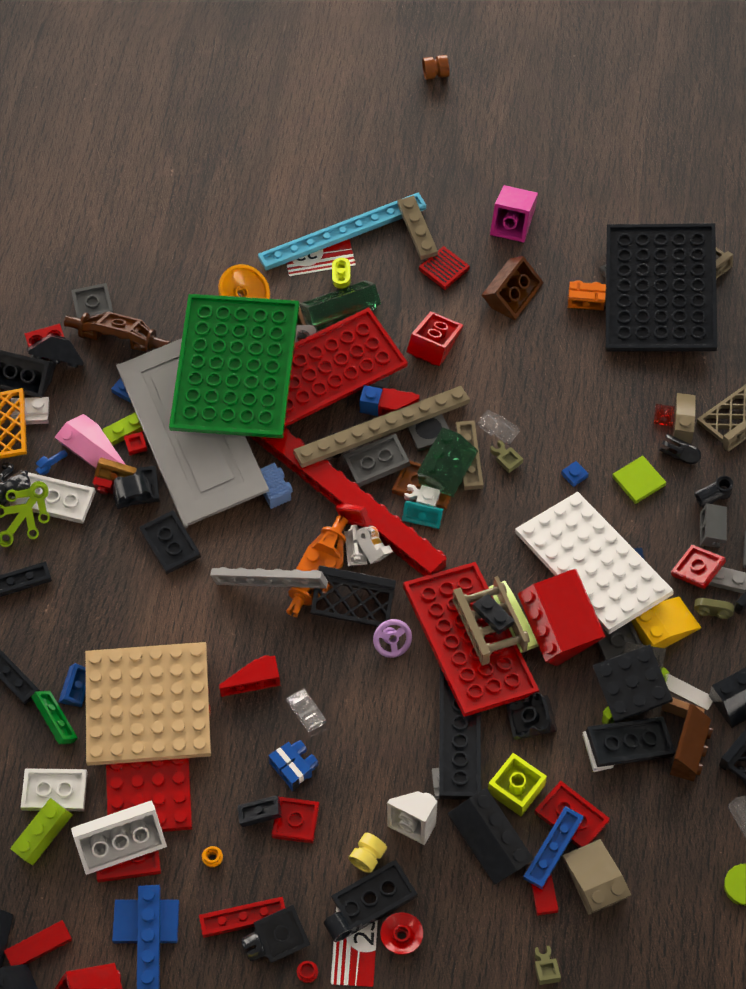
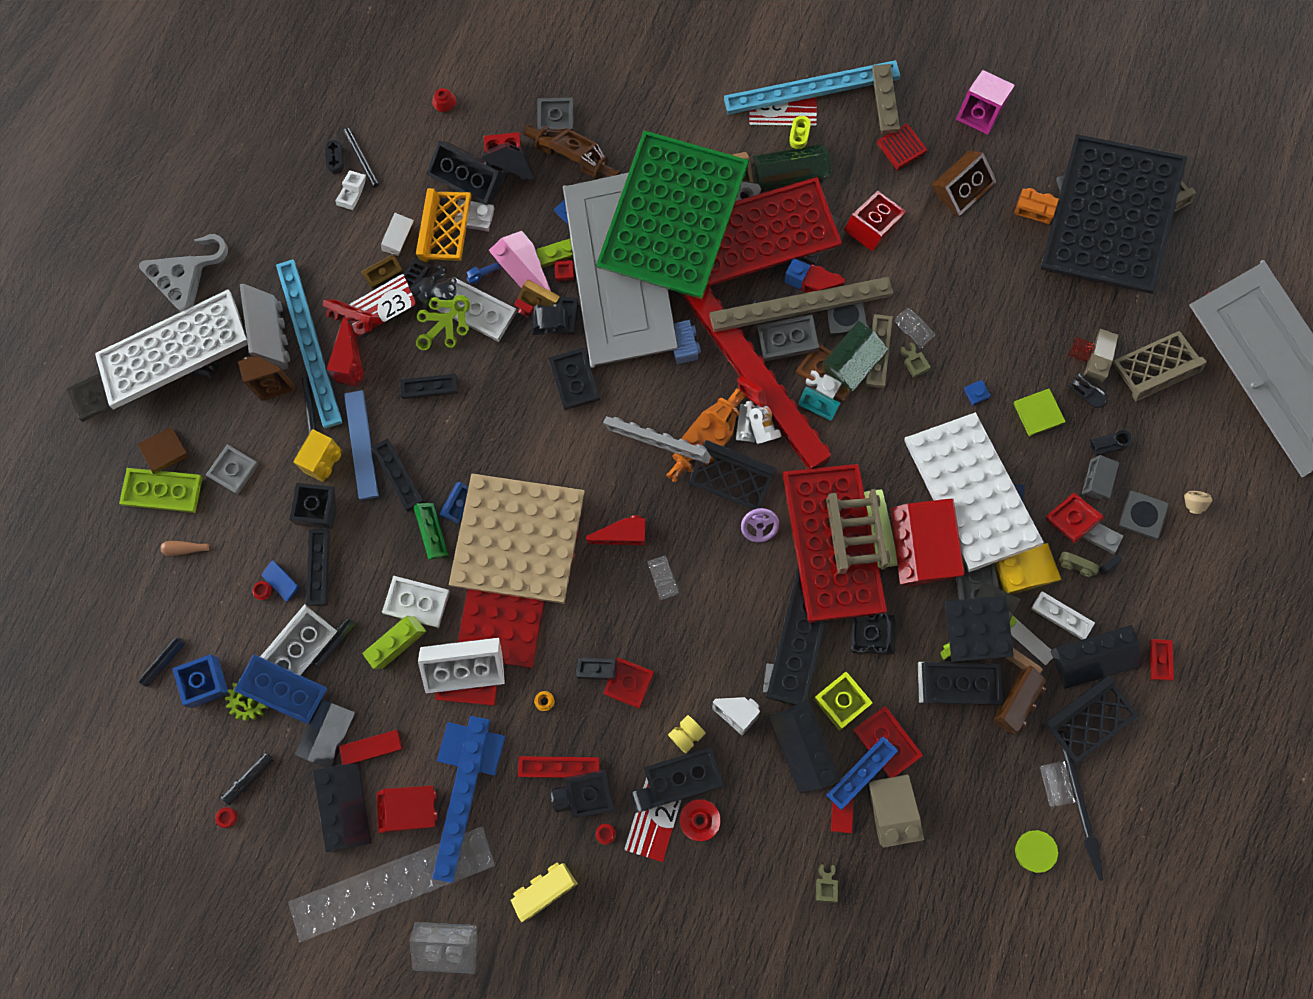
camera: 20 degrees right, 15 degrees up
(243, 280) = (706, 123): light orange dish -> none
(290, 764) = (635, 629): blue hips -> none
(493, 614) = (861, 527): black plate -> none
(710, 658) = (1062, 616): none -> white plate

